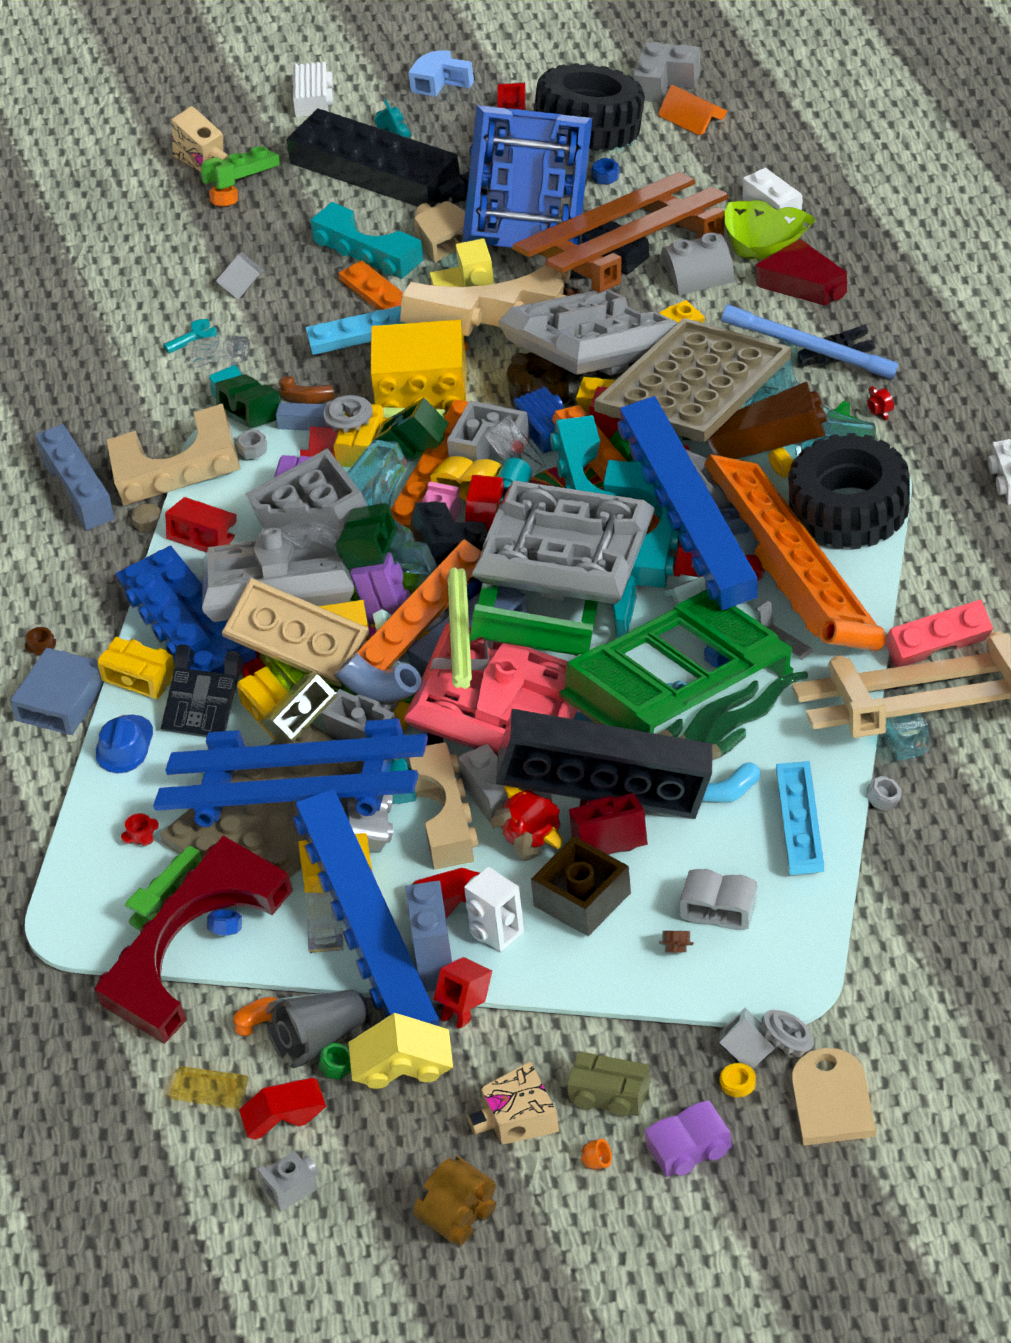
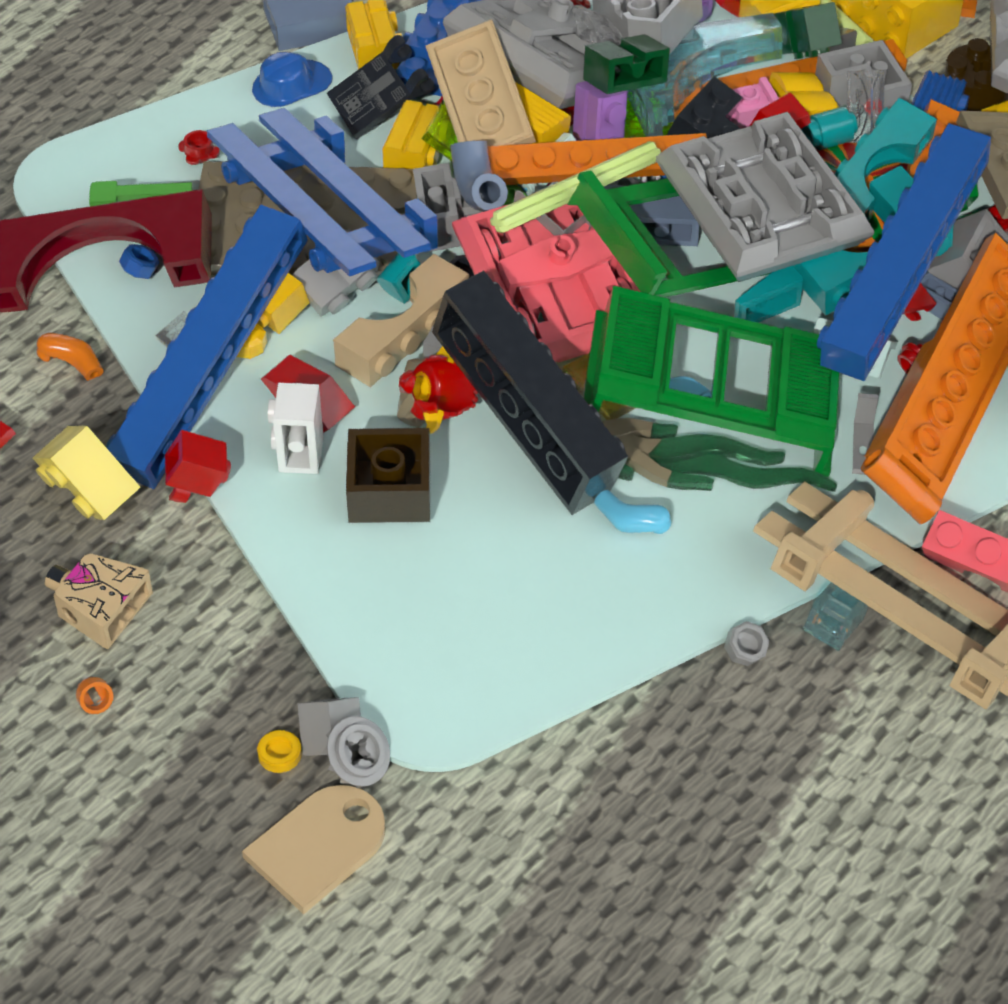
camera: 45 degrees right, 5 degrees up
(298, 708) = (399, 150): olive brick -> none
(313, 1021) = (75, 390): dark grey cone -> none
(334, 1061) = (49, 428): green tile -> none
(428, 931) = (222, 395): sand blue brick -> none
(608, 1084) = (183, 648): olive brick -> none
(610, 823) = (480, 450): dark red brick -> none
(675, 940) = (395, 590): reddish brown plate -> none
(688, 1139) = (164, 755): medium lavender brick -> none
(718, 899) = (475, 591): light grey brick -> none
(799, 818) = (639, 593): medium azure plate -> none

